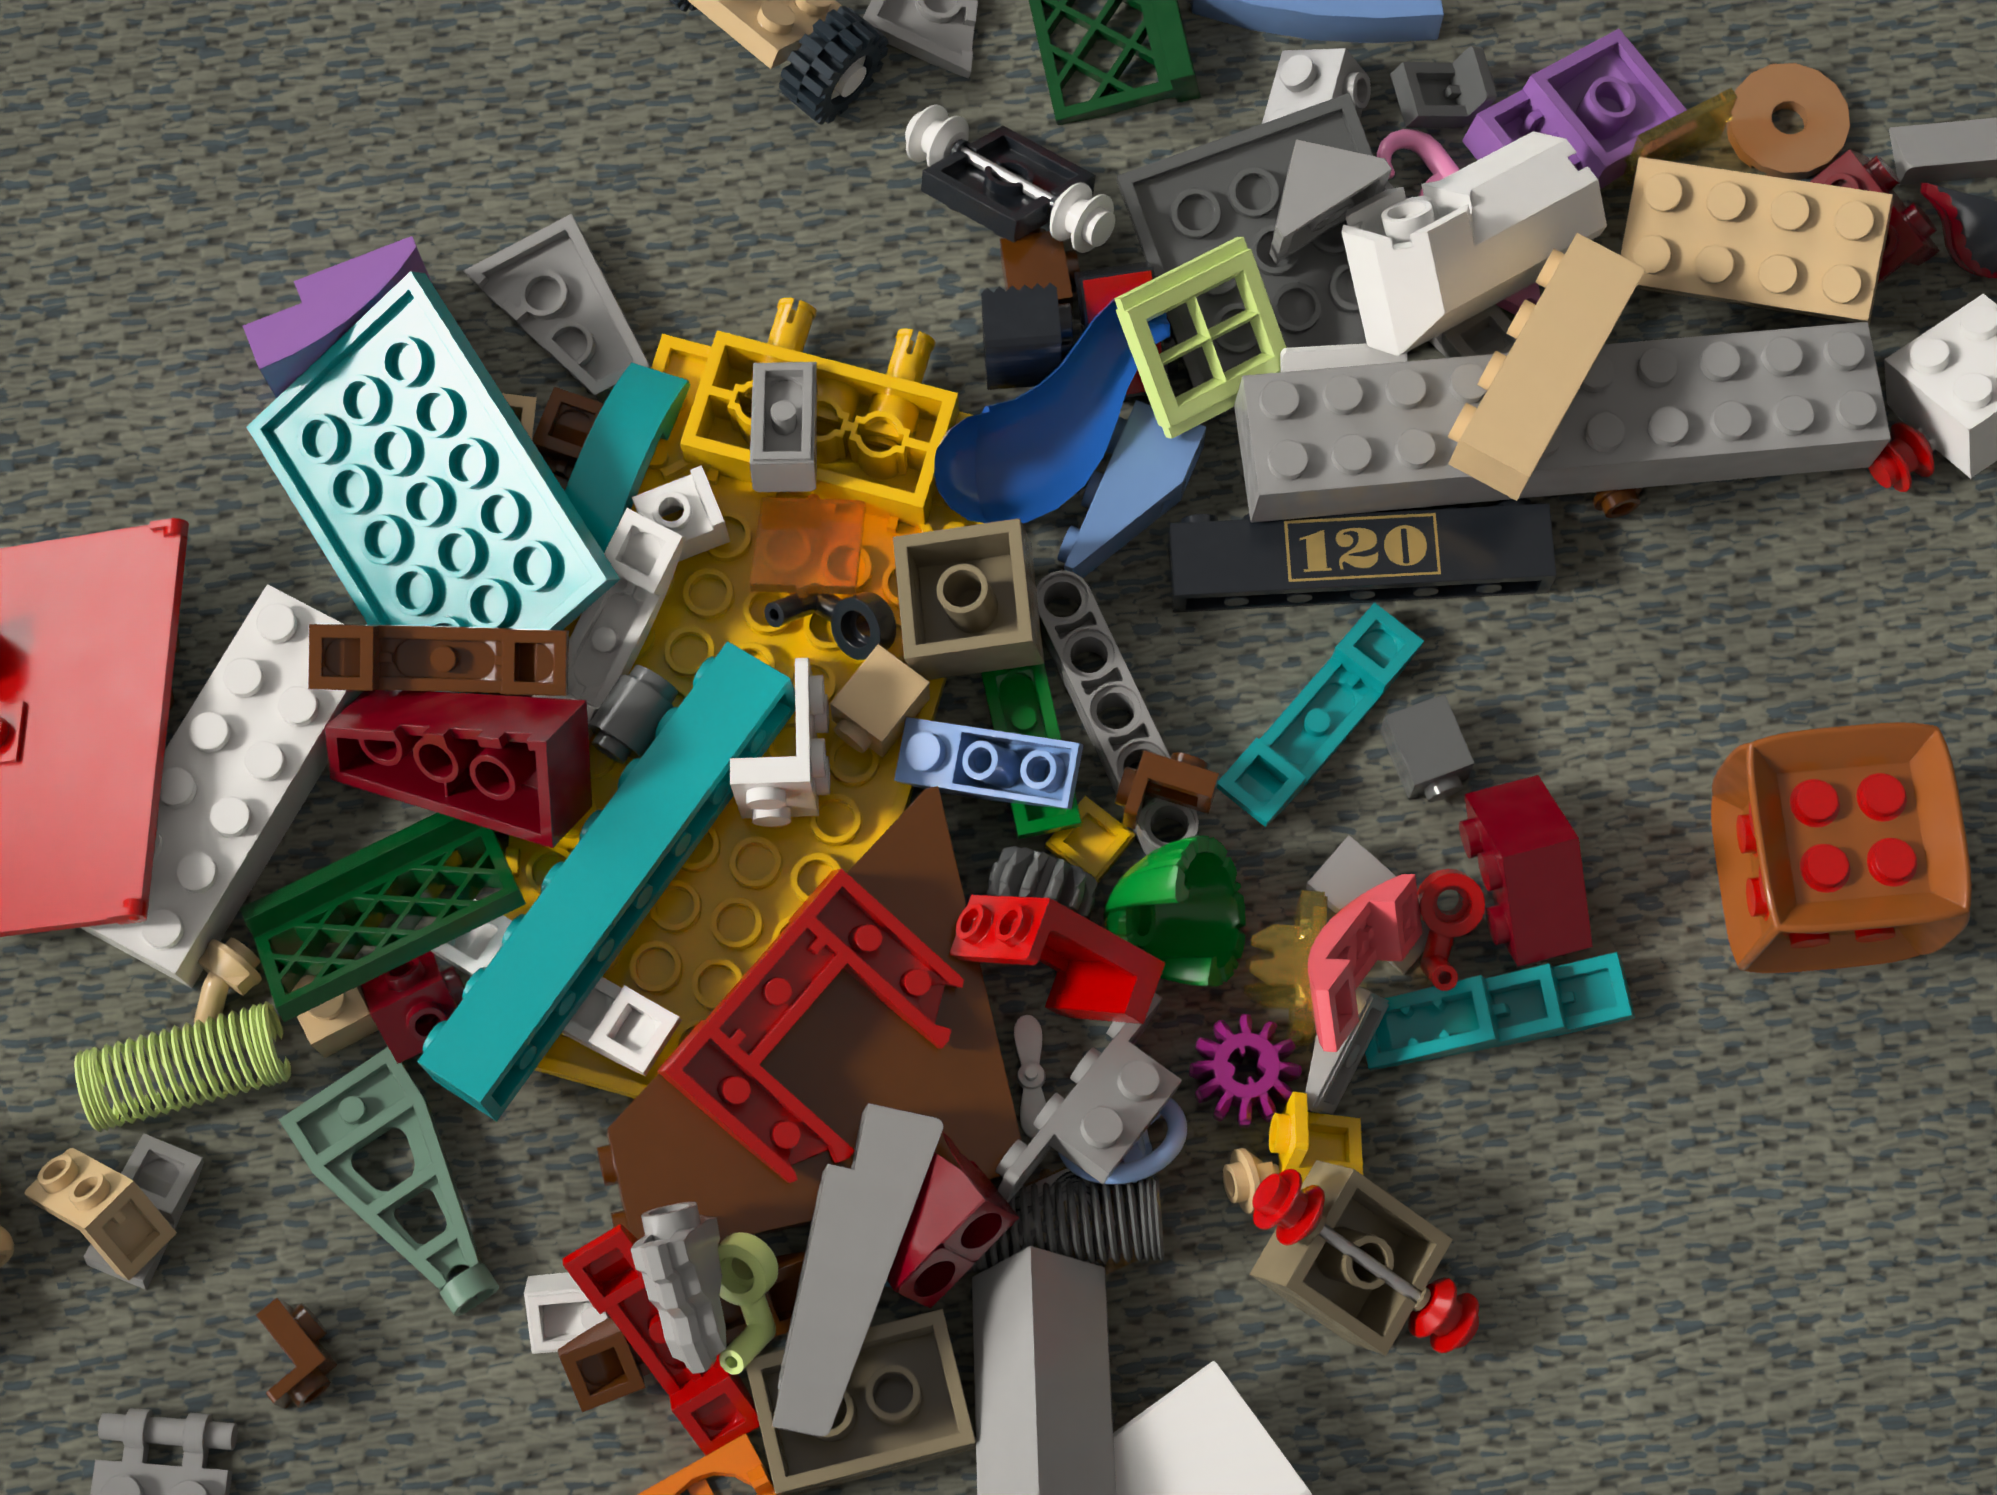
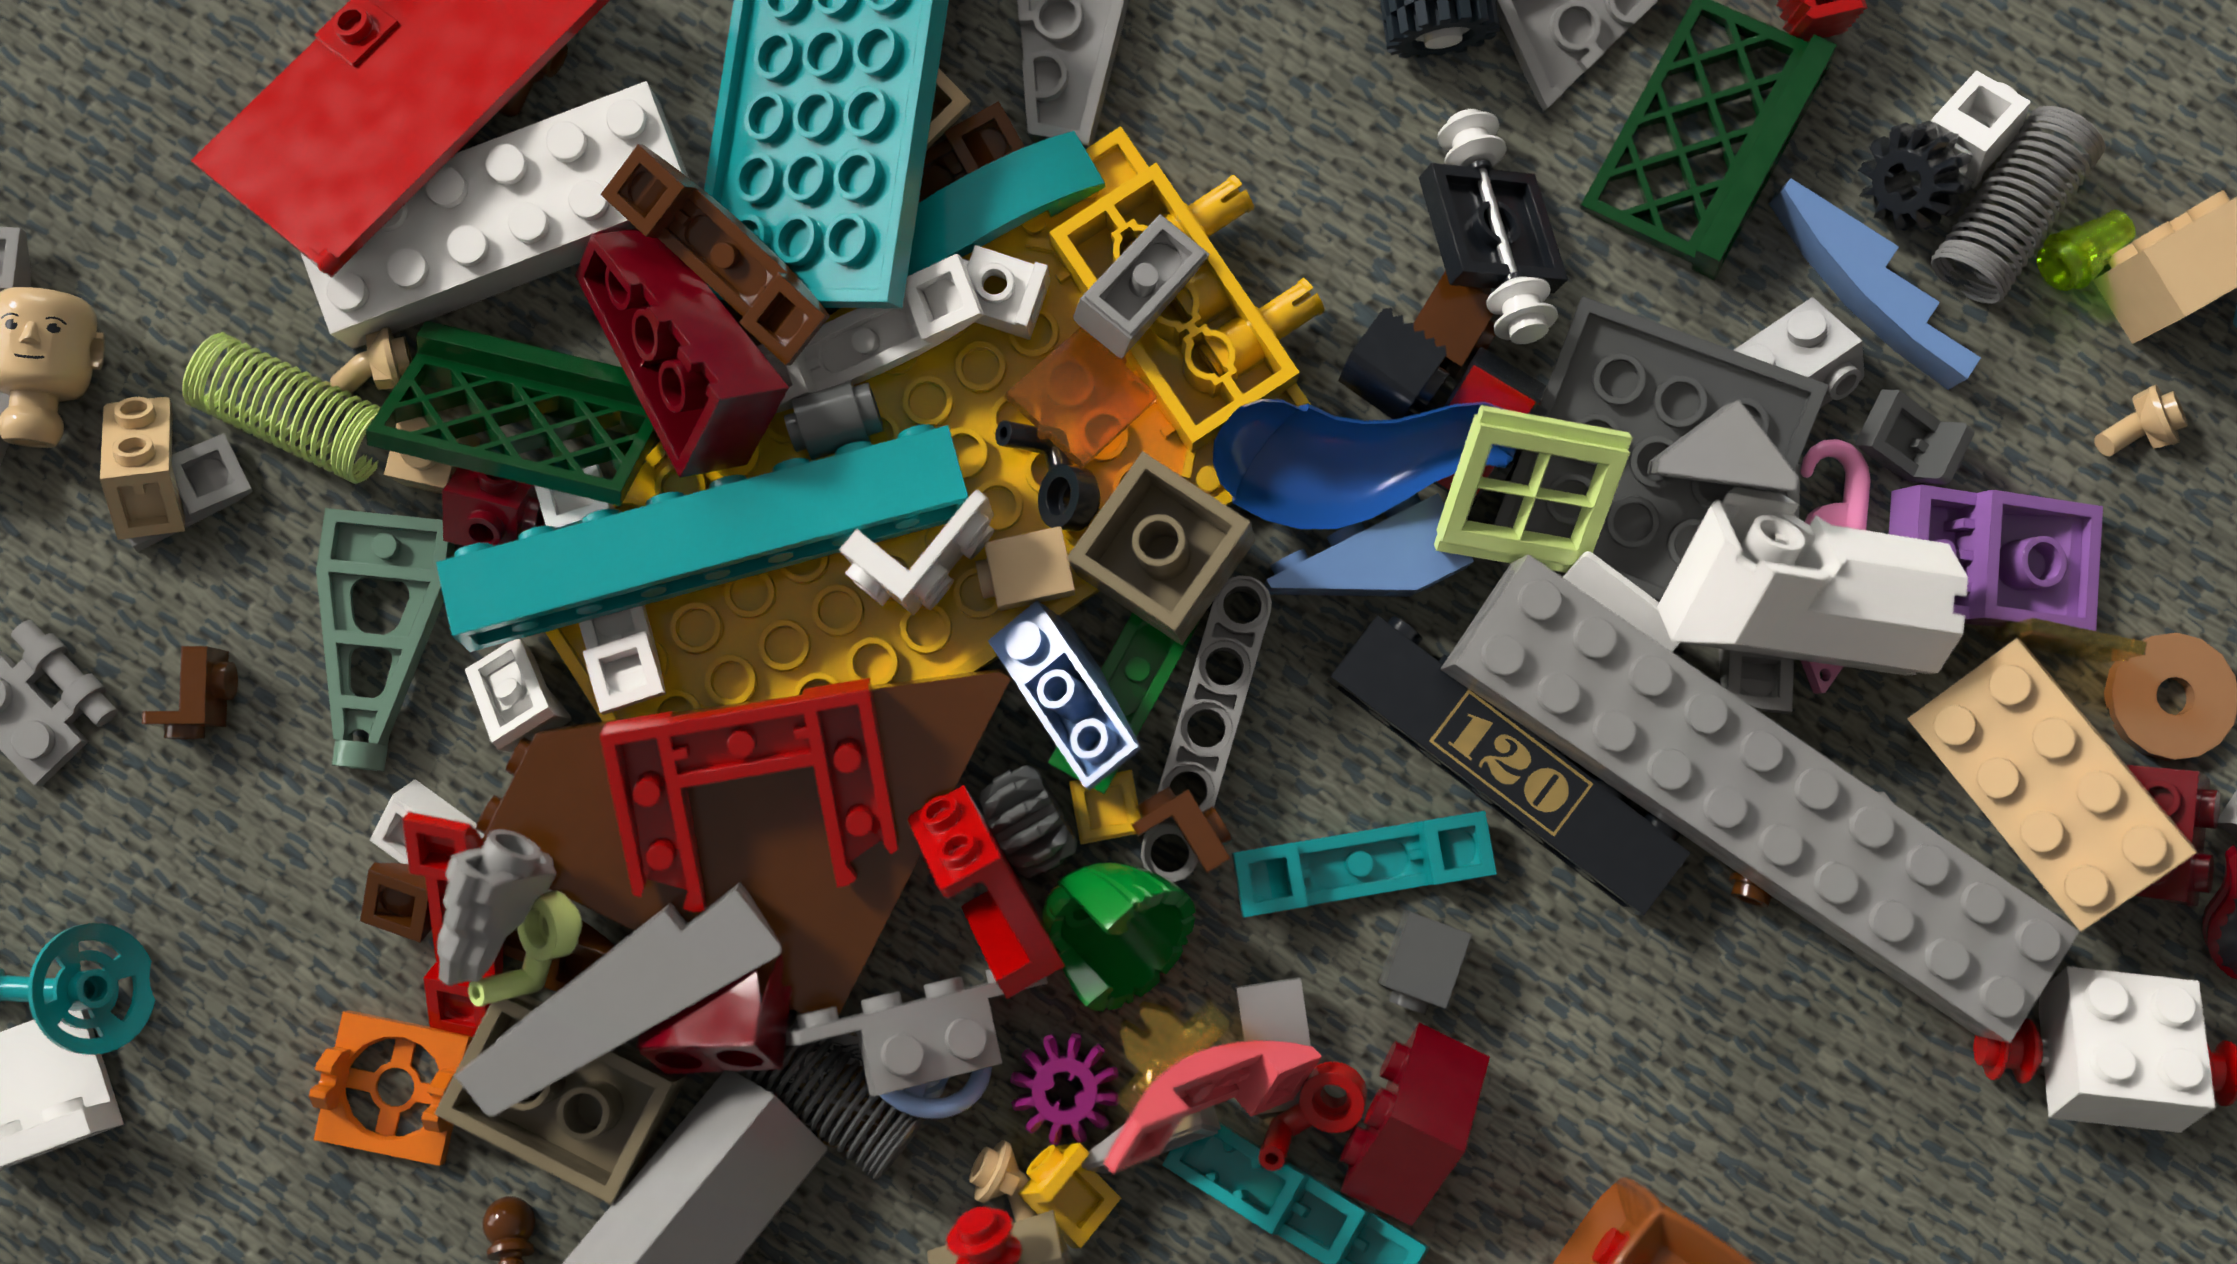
camera: 40 degrees right, 10 degrees up
(557, 1134) = (514, 696): none -> white slope
(1031, 1074) = (907, 948): white piece -> none
(1545, 366) = (1777, 757): tan brick -> none

